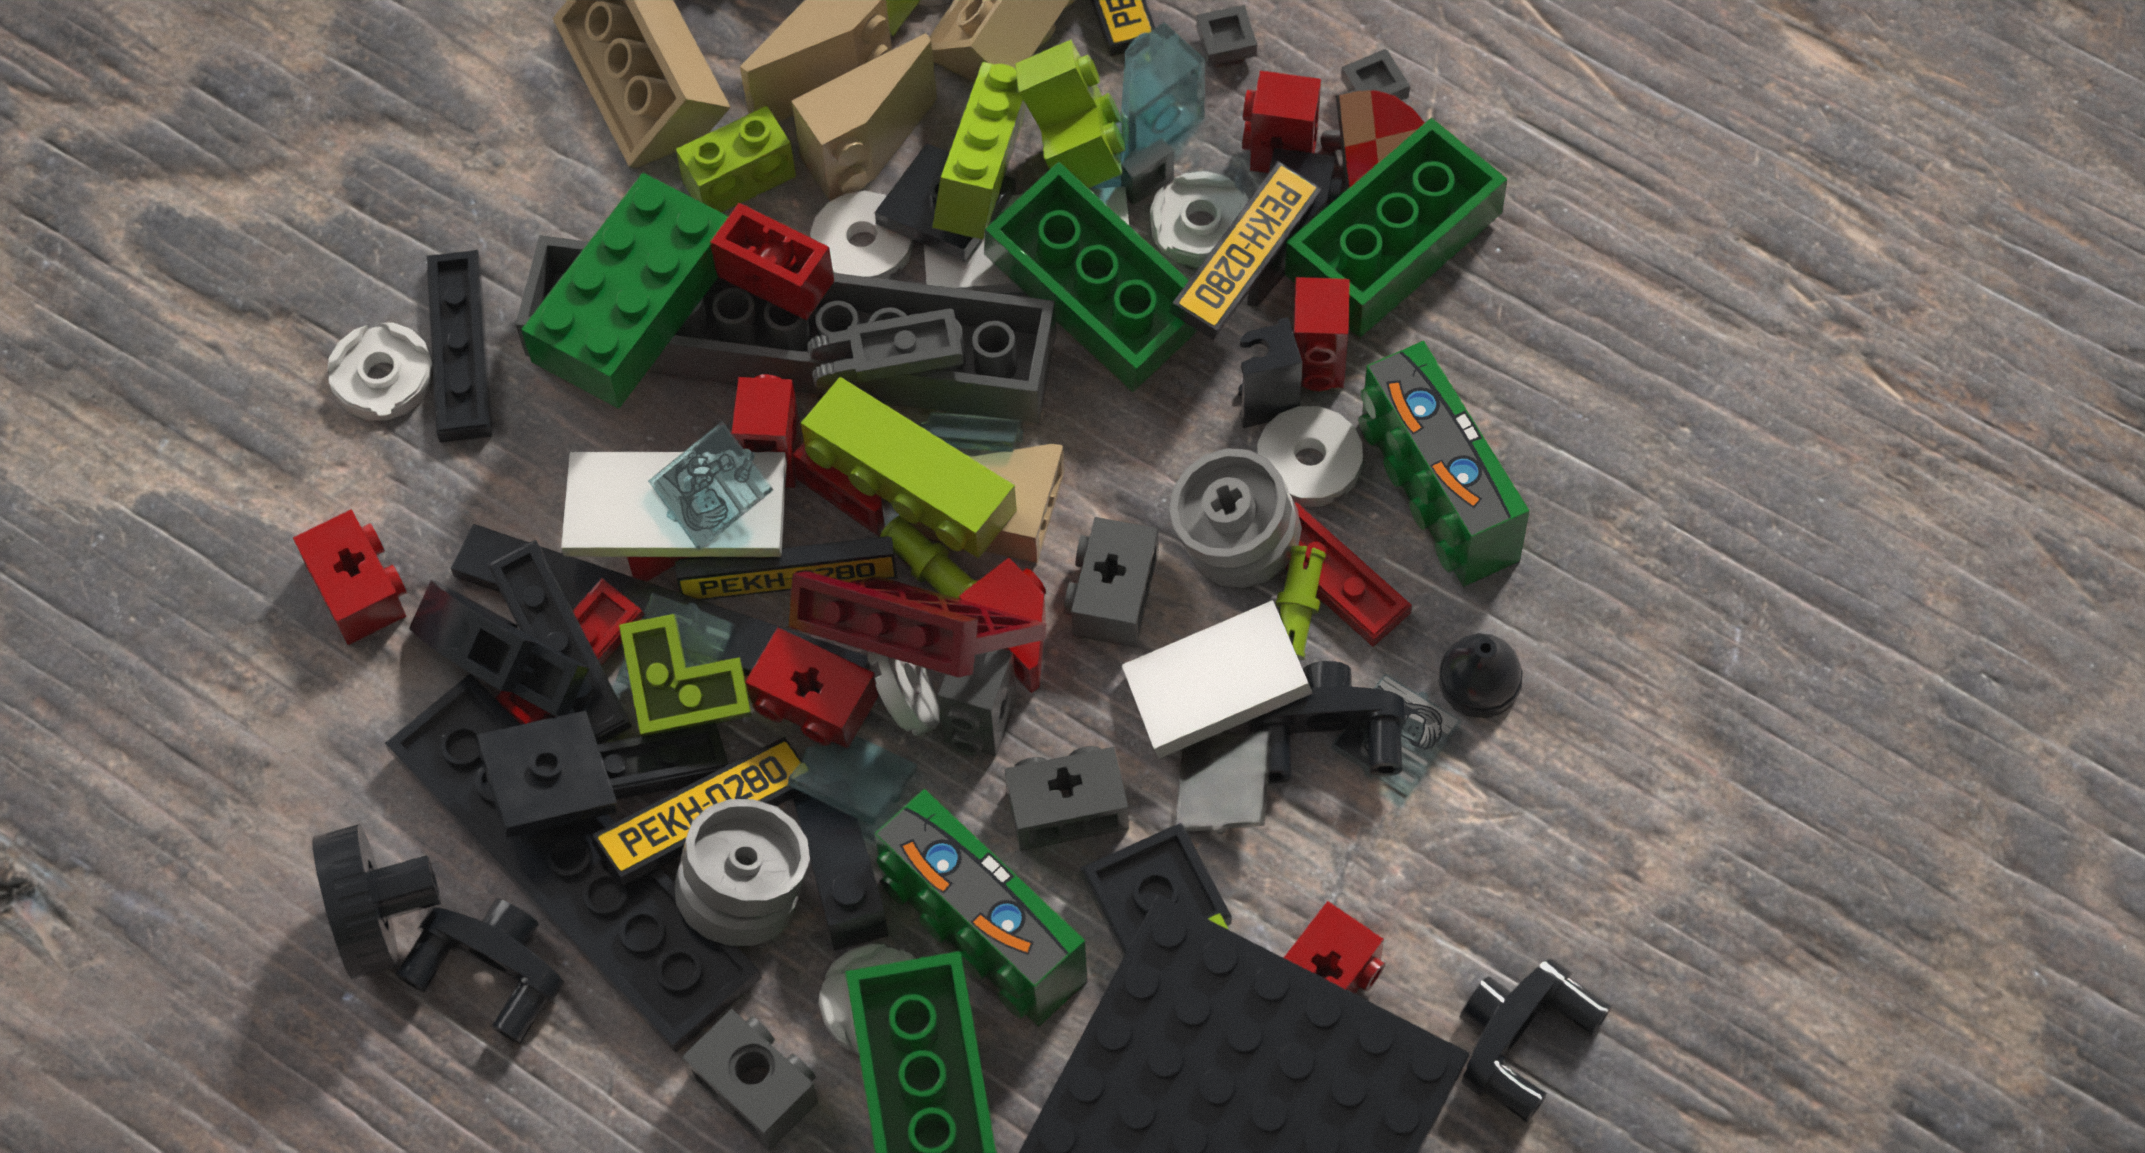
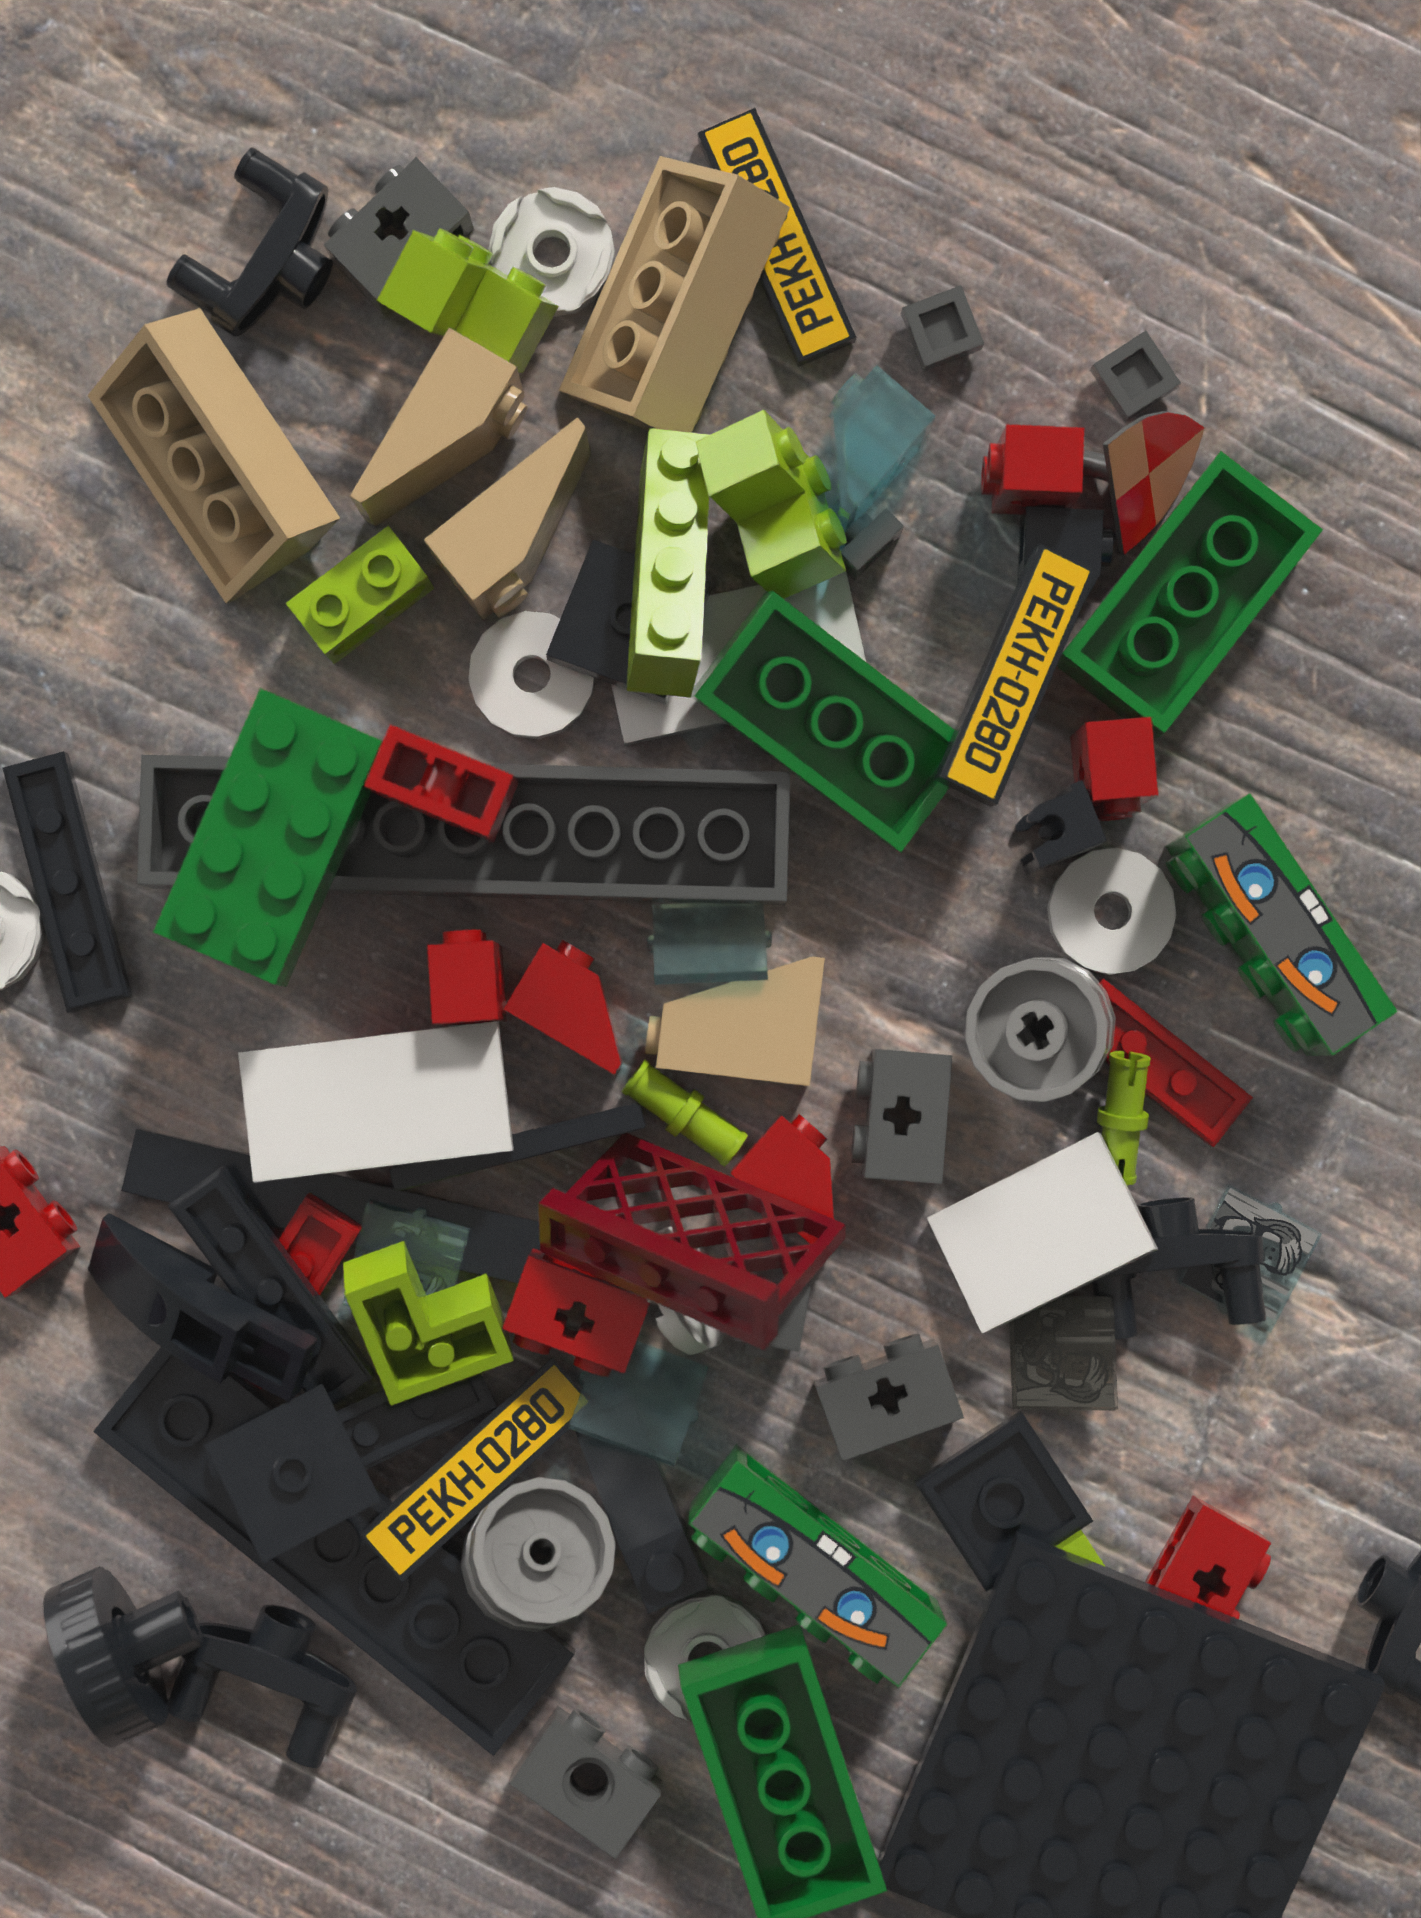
camera: 10 degrees left, 25 degrees up
(710, 485) = (418, 1090): clear light blue piece -> none
(888, 348) = (606, 874): dark grey hinge -> none
(908, 468) = (648, 1027): lime brick -> none
(1188, 194) = (949, 558): white tile -> none
(1480, 675) = (1339, 1175): black helmet -> none

